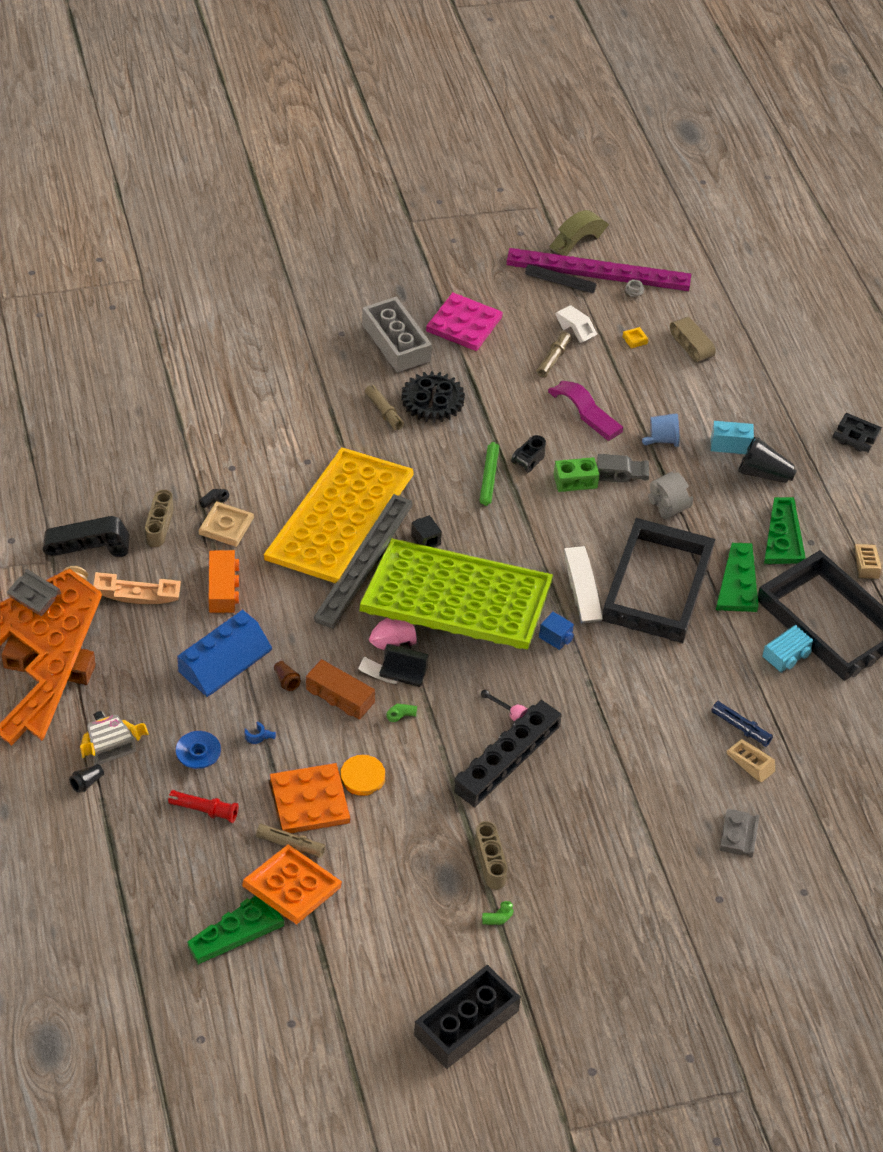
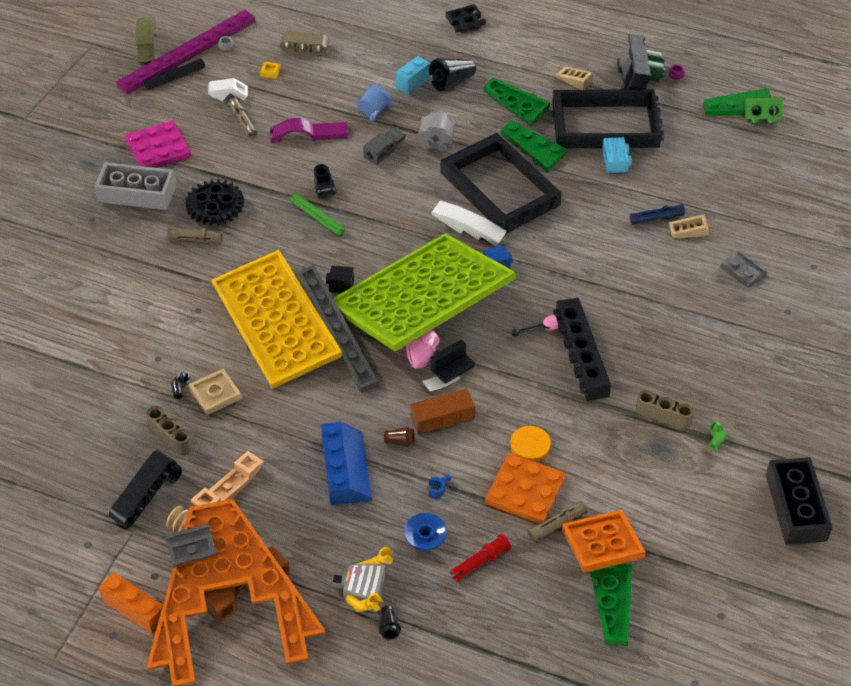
camera: 50 degrees left, 0 degrees up
(223, 581) = (272, 425): orange brick -> none
(400, 710) = (490, 388): bright green arm -> none
(576, 474) = (366, 169): bright green brick -> none

